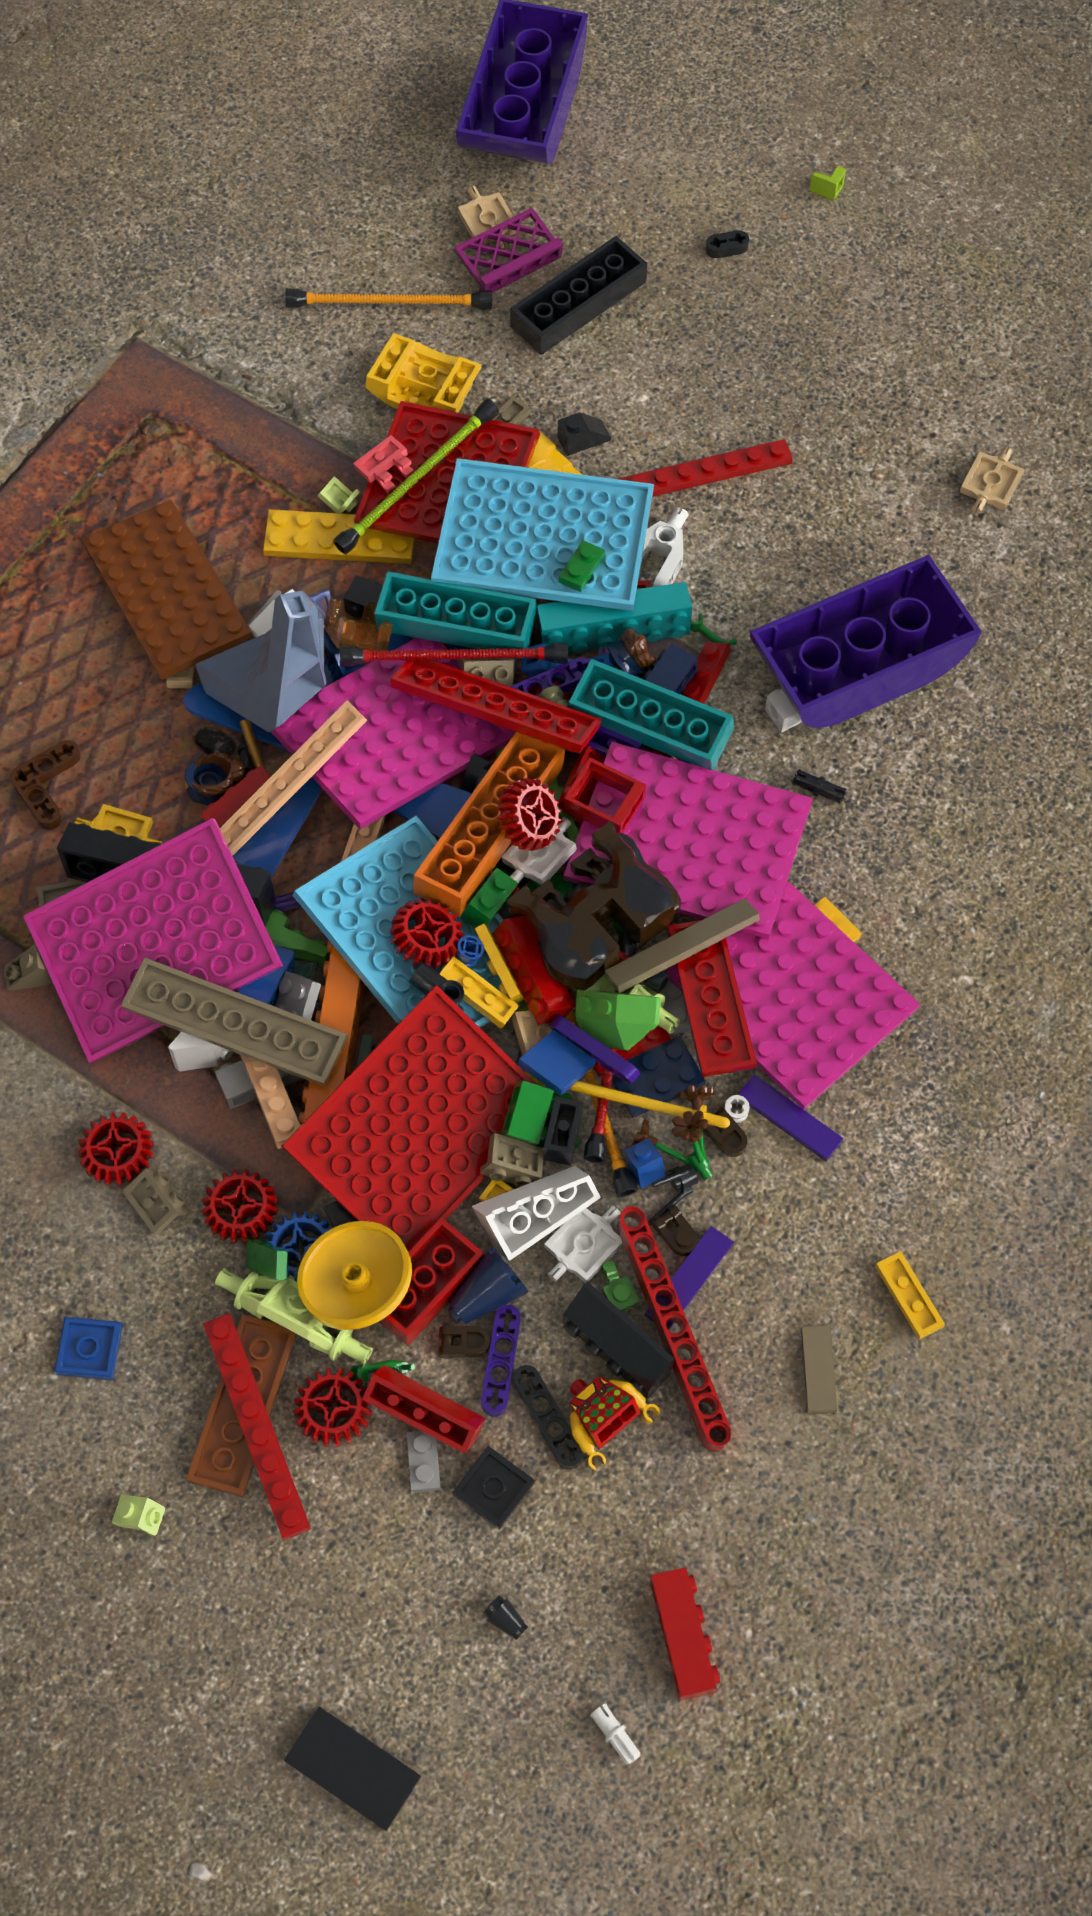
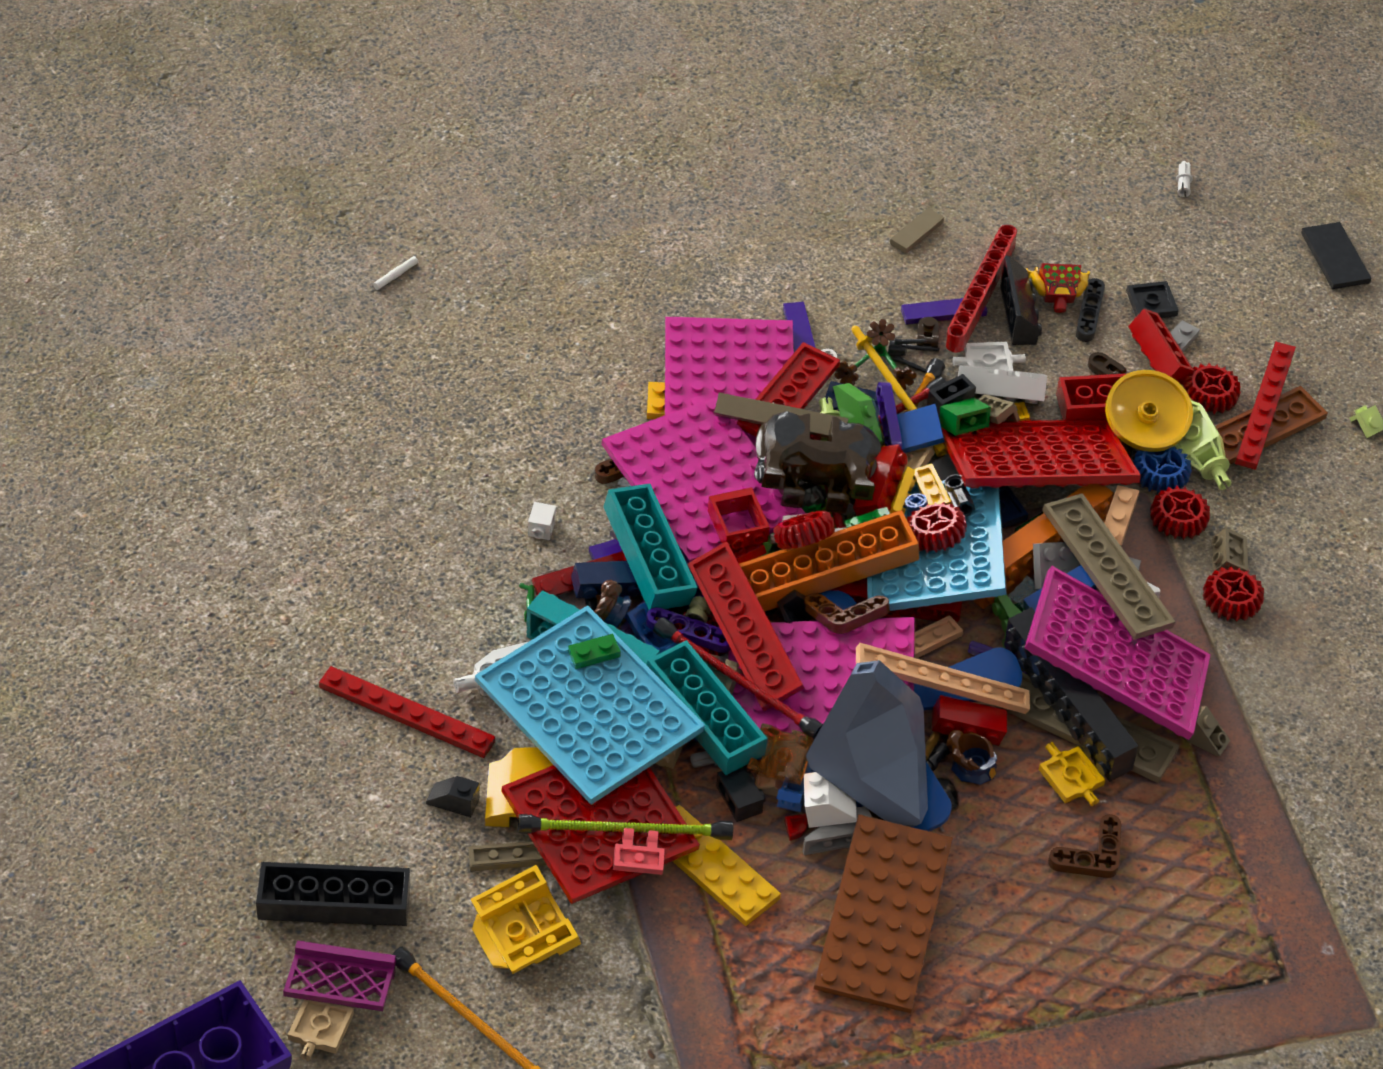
camera: 140 degrees left, 15 degrees down
(88, 1348) = (1334, 515): blue tile -> none
(266, 1259) = (1193, 457): green tile -> none
(338, 496) = (684, 885): yellowish green bracket -> none
(426, 775) = (845, 620): none -> reddish brown beam
(486, 1289) = (1065, 365): dark blue cone -> none
(501, 1360) = (1088, 345): dark purple beam -> none
(505, 1617) = (1198, 252): black cone -> none
(618, 1291) = (991, 330): bright green plate -> none
(644, 1163) = (916, 361): blue brick -> none
(683, 1633) = (1109, 185): red brick -> none
(727, 244) = (167, 855): black beam -> none
(730, 1141) = (848, 346): dark brown plate -> none
(819, 786) = (574, 469): black pin -> none
(826, 185) = (27, 841): lime panel -> none
(868, 643) = (458, 489): dark purple brick -> none
(909, 1295) = (831, 221): yellow plate -> none
(992, 480) = (221, 549): tan plate -> none

